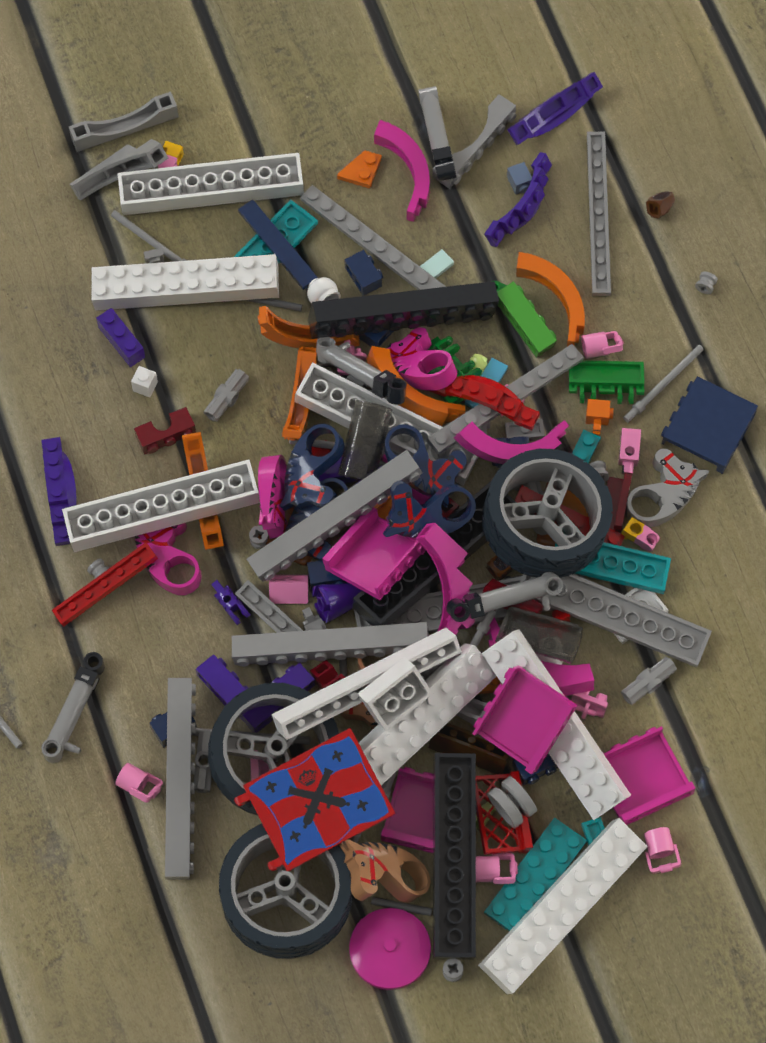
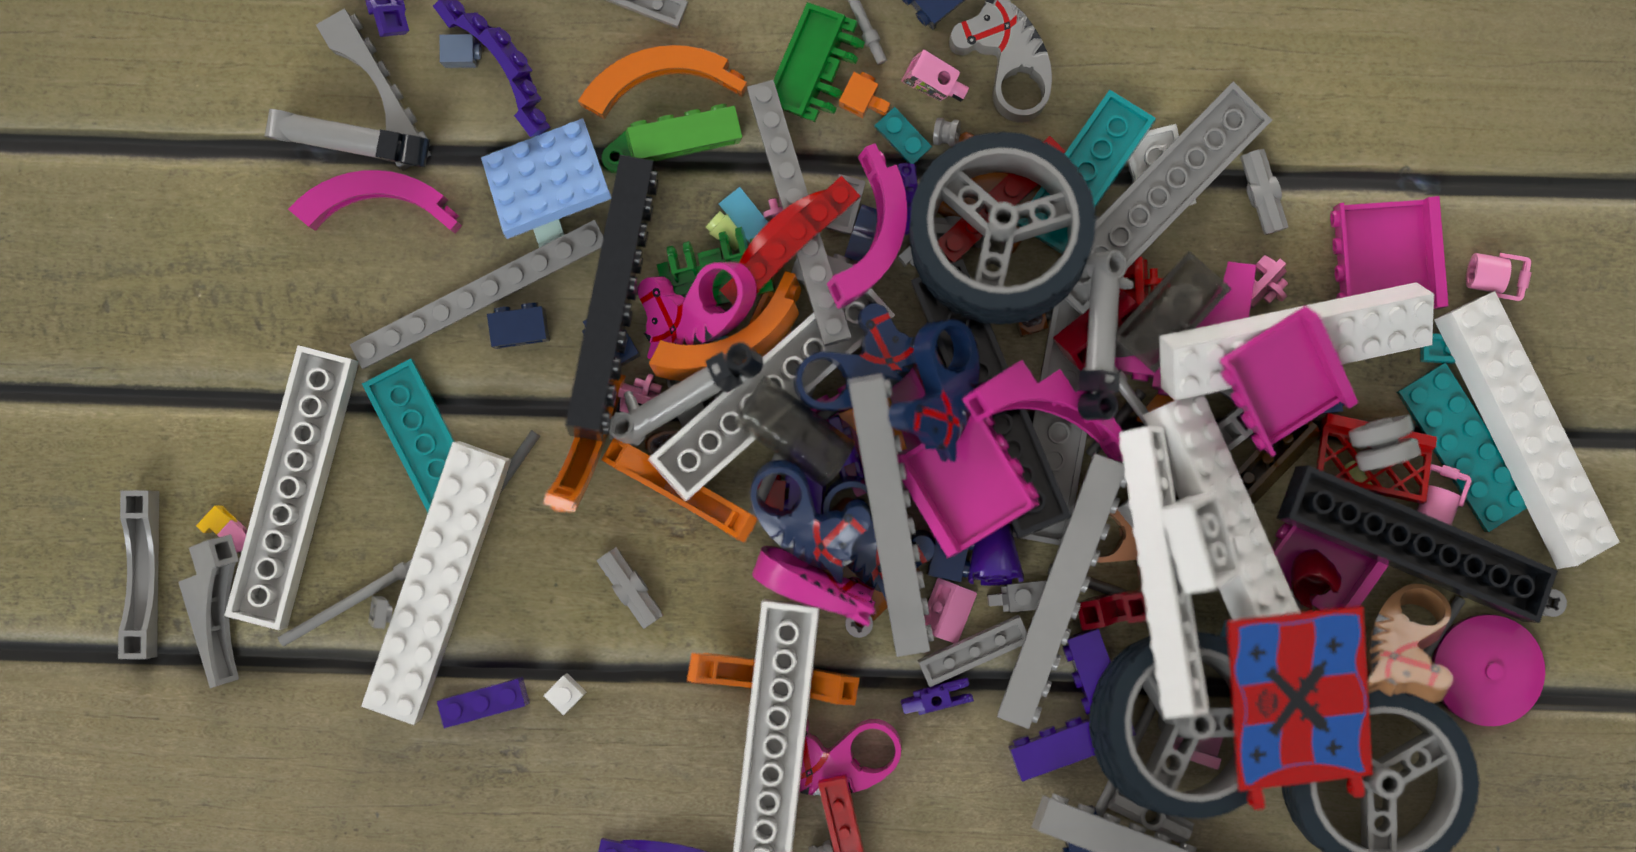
camera: 65 degrees left, 20 degrees up
(152, 439) = (653, 667): dark red arch -> none
(277, 244) = (428, 429): dark blue tile -> none
(322, 289) = (530, 396): white piece -> none
(361, 169) = (351, 264): orange wing -> none
(405, 800) = (1313, 575): none -> dark red piece
(462, 249) = (545, 178): none -> light blue plate
(596, 344) = (760, 53): bright pink piece -> none
(619, 492) = (984, 116): dark red panel -> none
(640, 534) = (1056, 115): leg -> none

